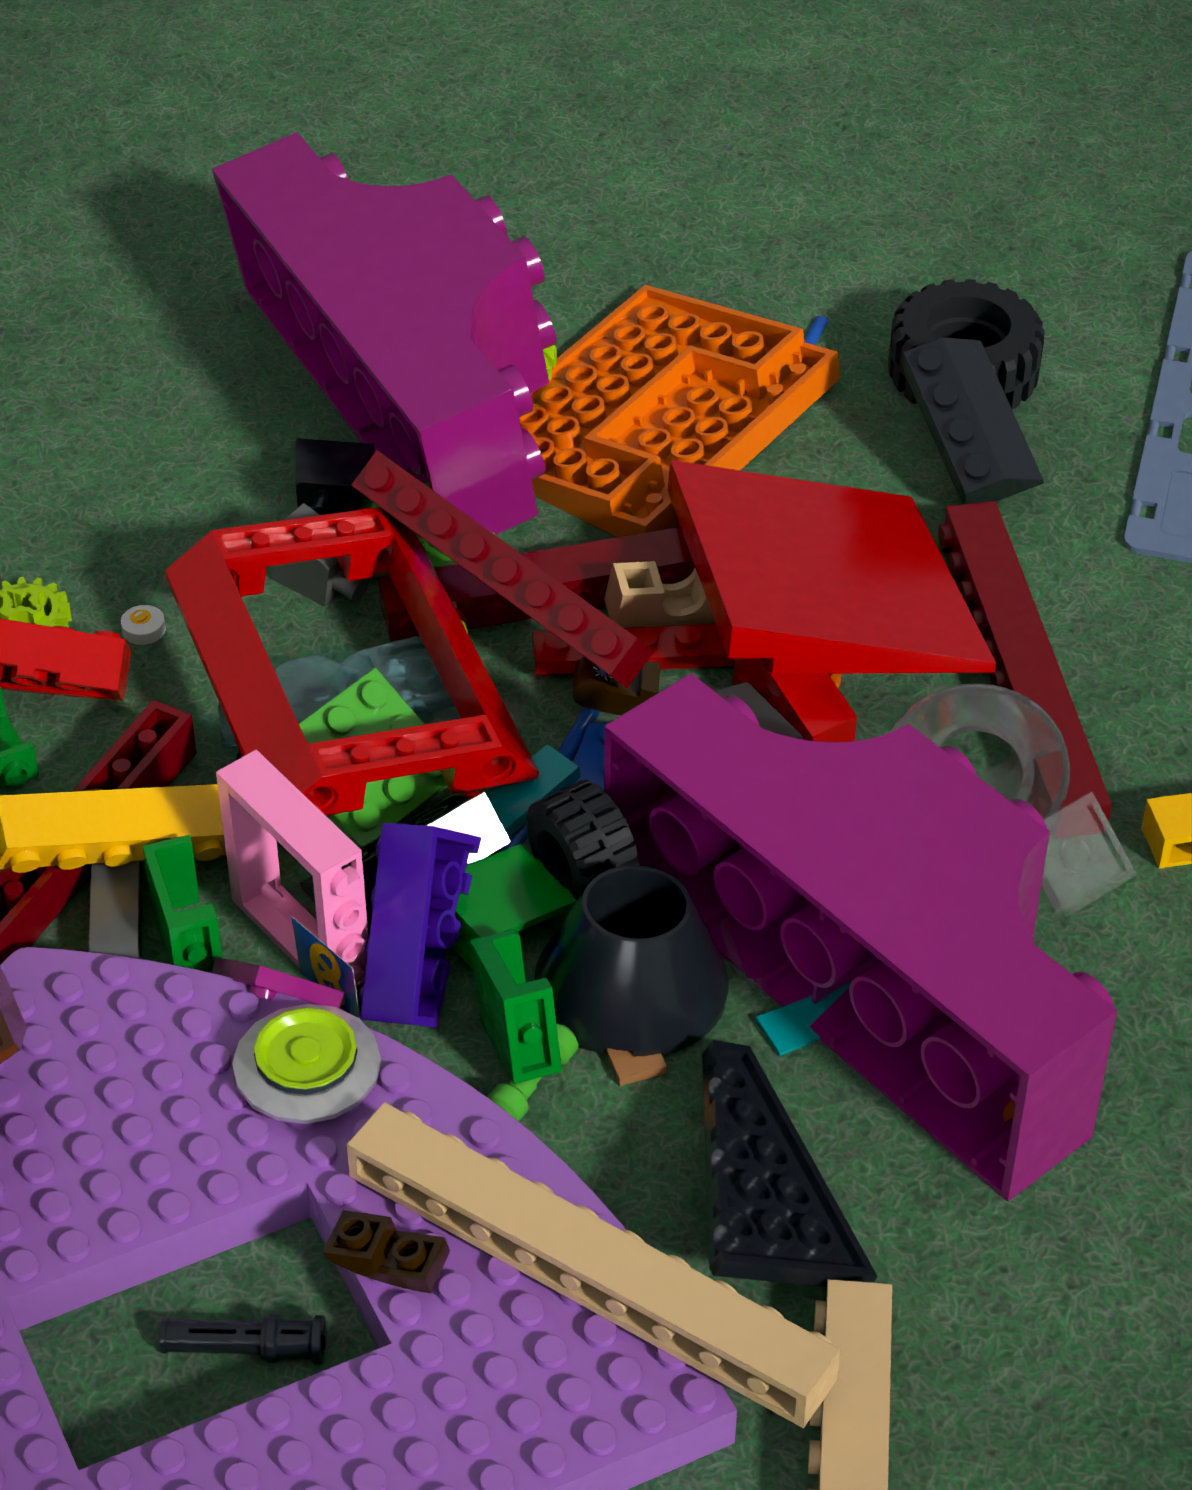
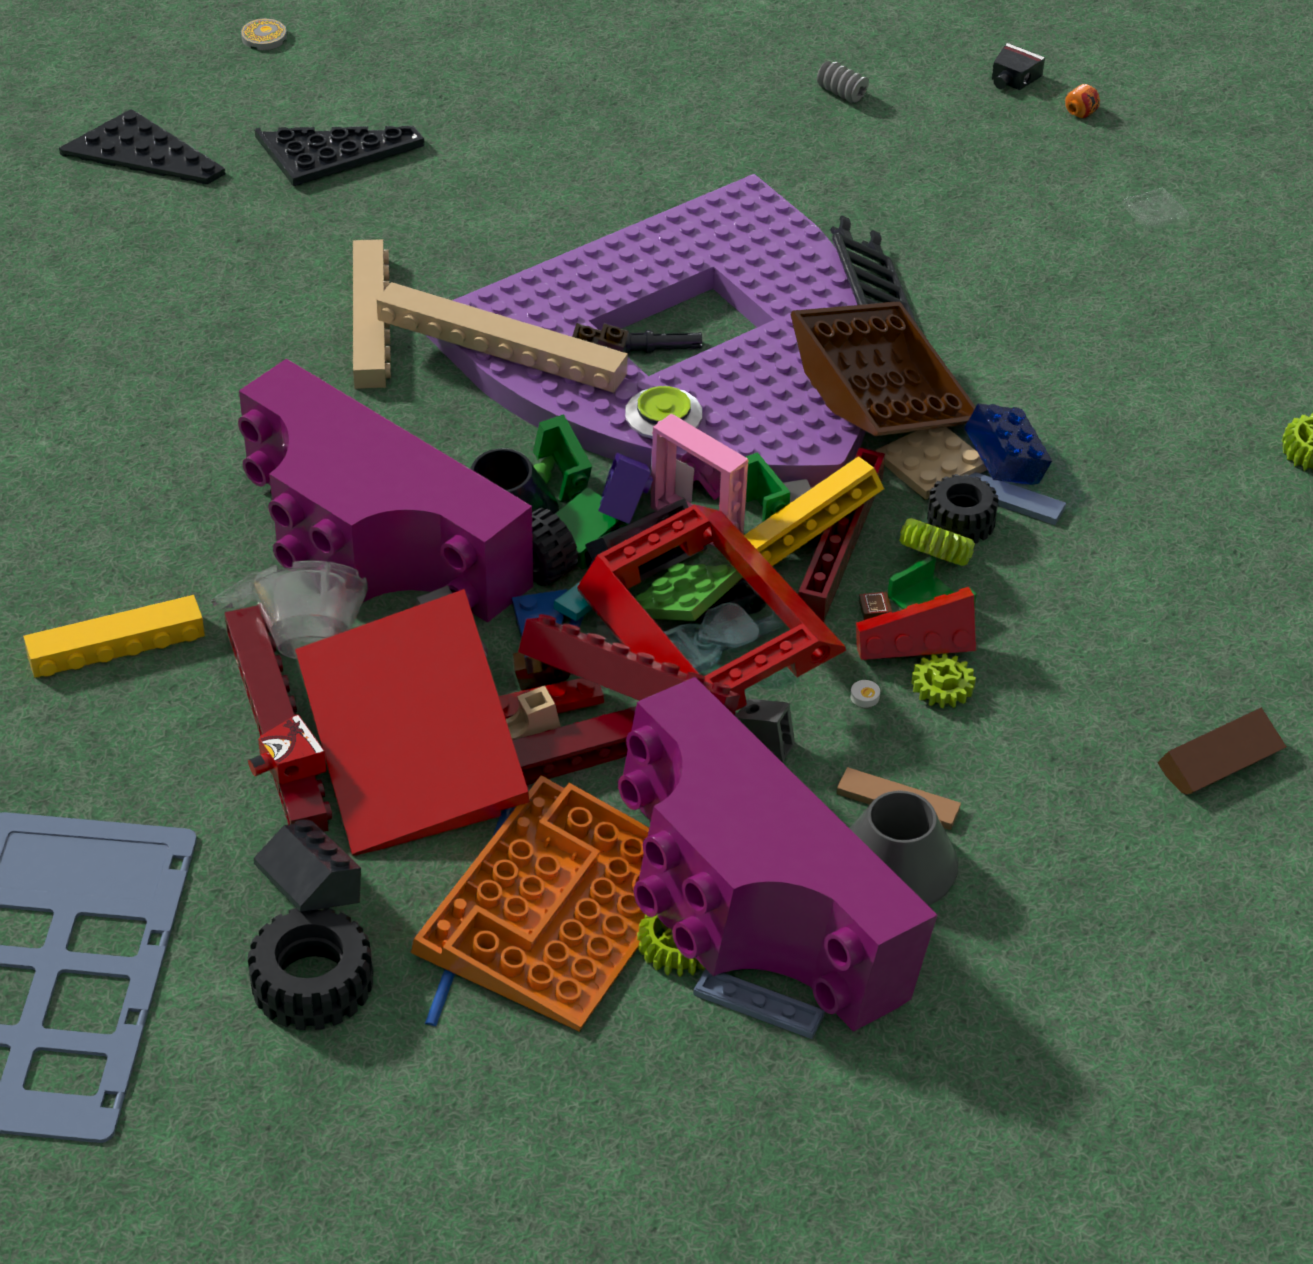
camera: 170 degrees right, 0 degrees up
(67, 753) = (874, 604): none -> reddish brown tile
(160, 487) = (868, 787): none -> medium nougat tile
(194, 404) = (910, 842): none -> dark grey cone
(764, 1192) = (416, 392): black wing -> none
(999, 556) = (289, 752): none -> red torso

